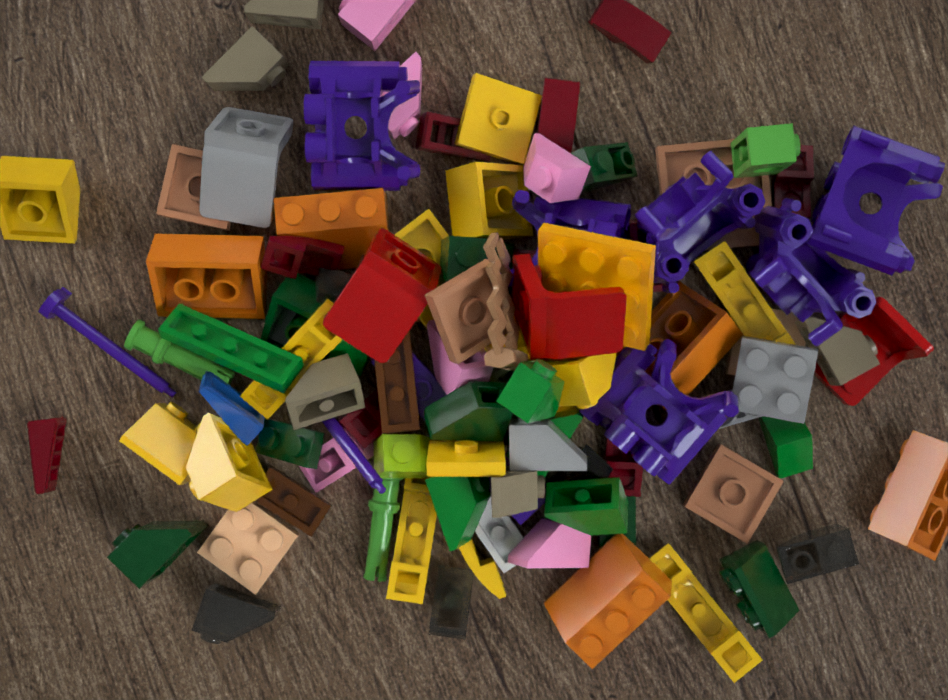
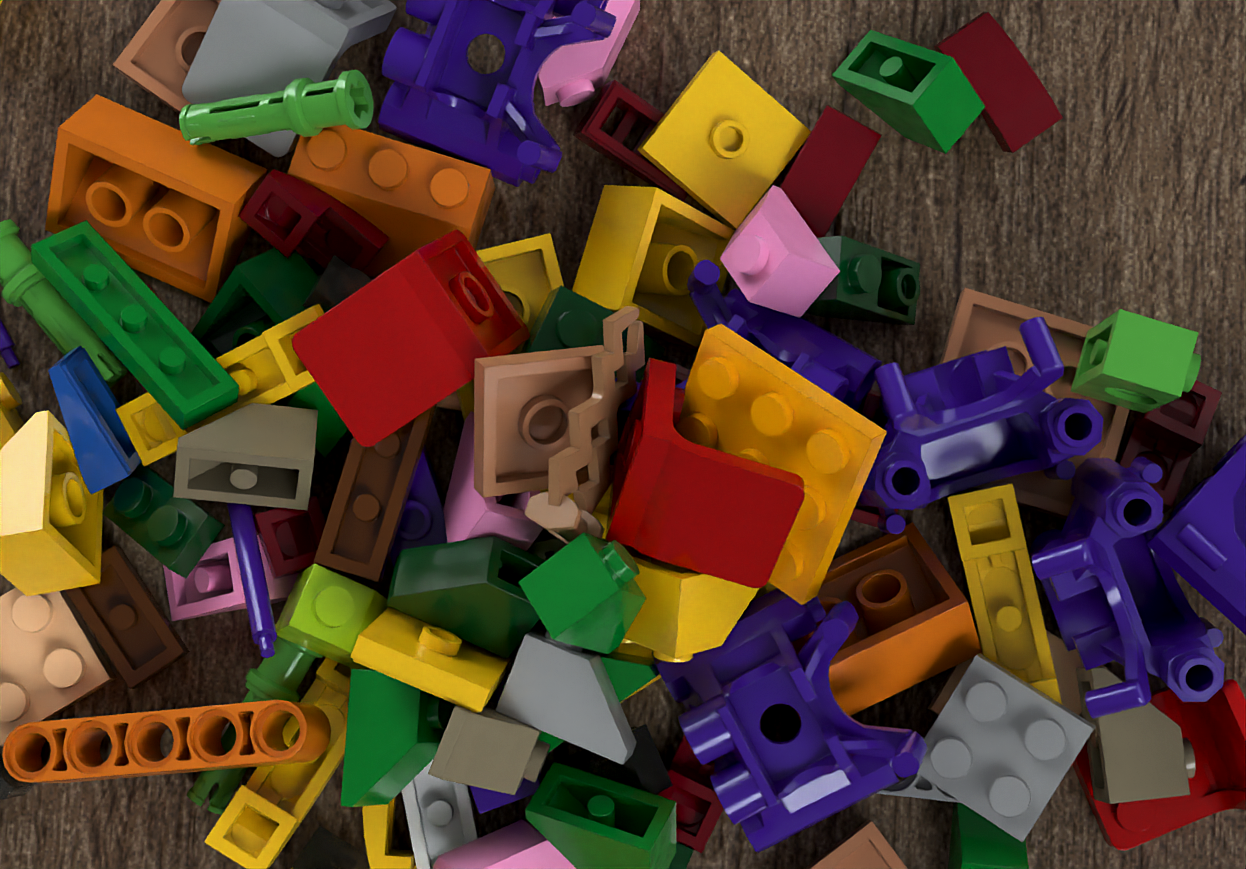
camera: 20 degrees right, 5 degrees down
(270, 197) = (301, 107): none -> bright green pin
(327, 560) = (137, 739): none -> orange beam
(585, 51) = (911, 89): none -> green slope

